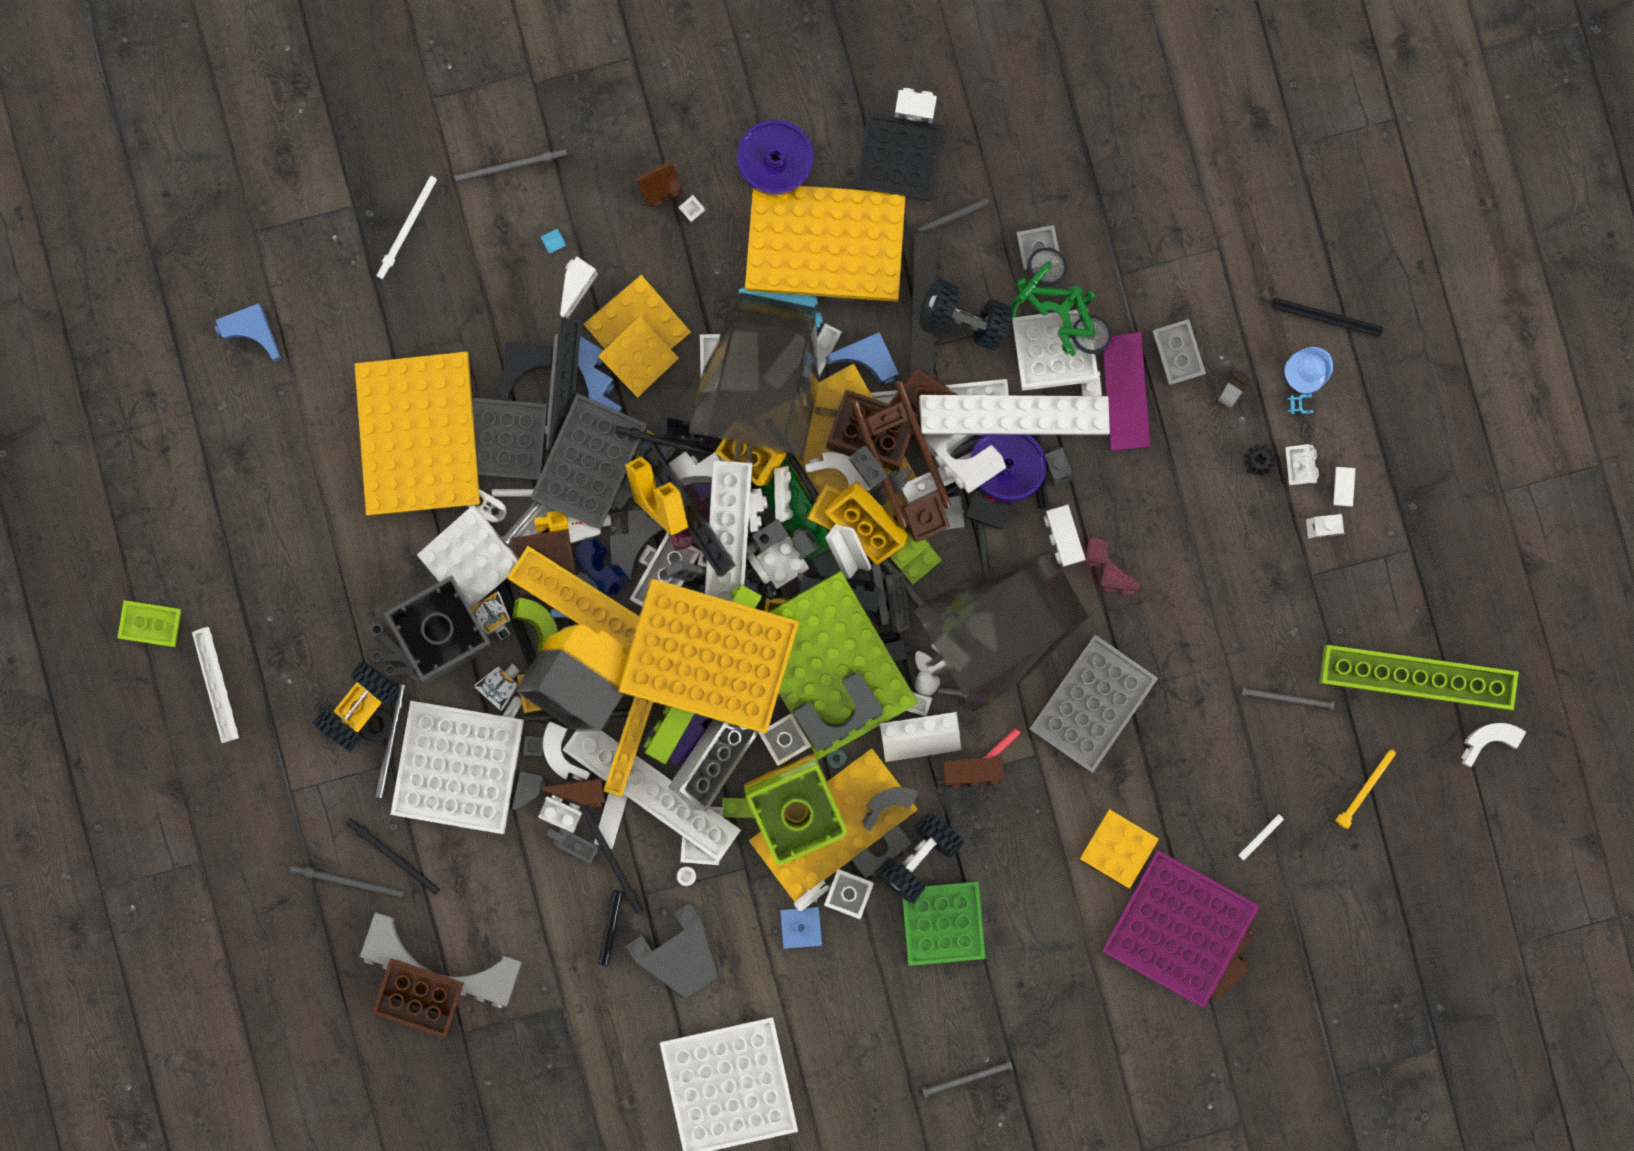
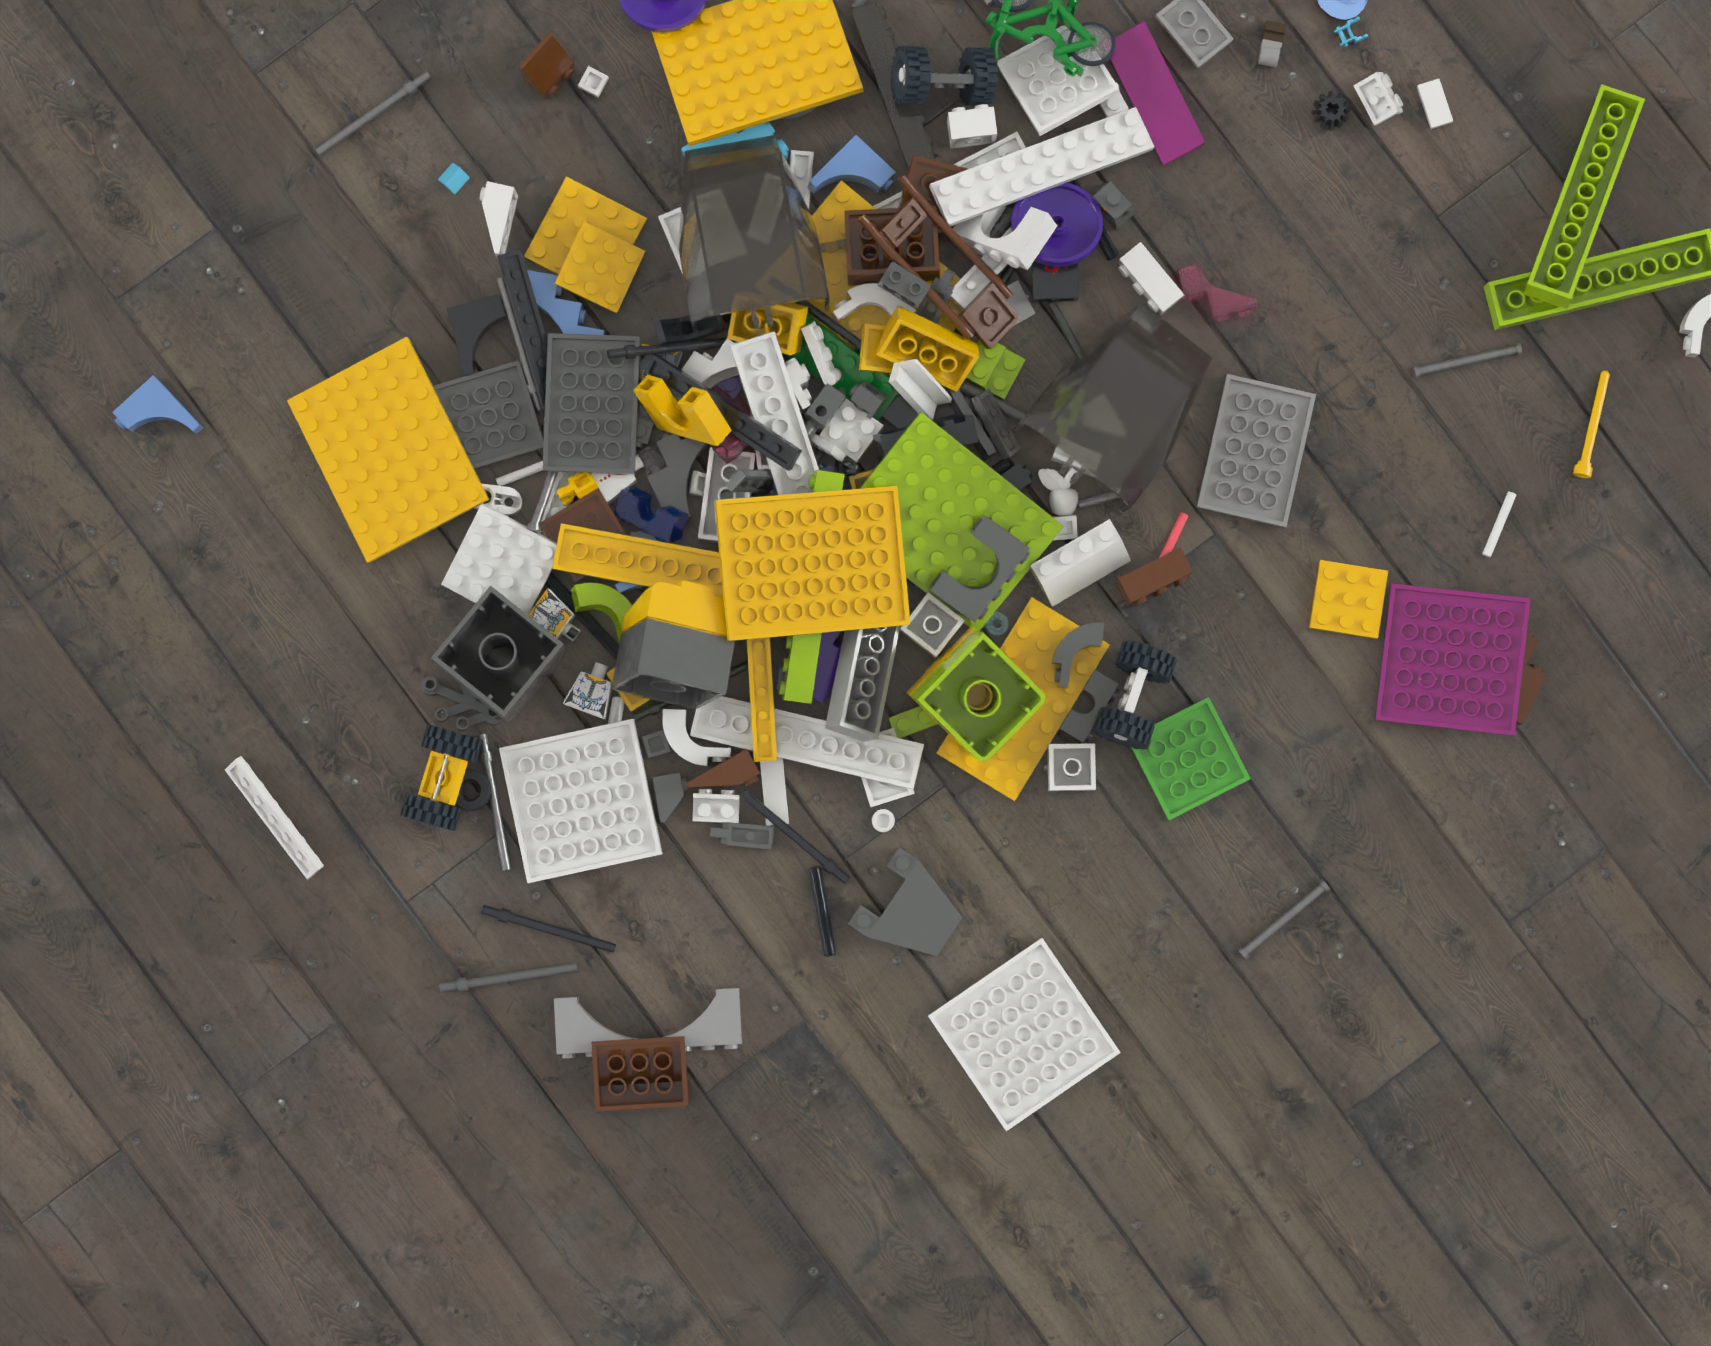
camera: 25 degrees left, 0 degrees up
(149, 623) = (173, 779): lime plate -> none
(389, 260) = (279, 270): white bar -> none
(801, 928) = (1033, 826): medium blue plate -> none
(811, 896) = (1030, 786): white axle -> none
(972, 361) = (971, 126): none -> white brick
(1325, 526) = (1433, 154): white torso -> none
(1429, 607) = (1584, 196): none -> lime brick

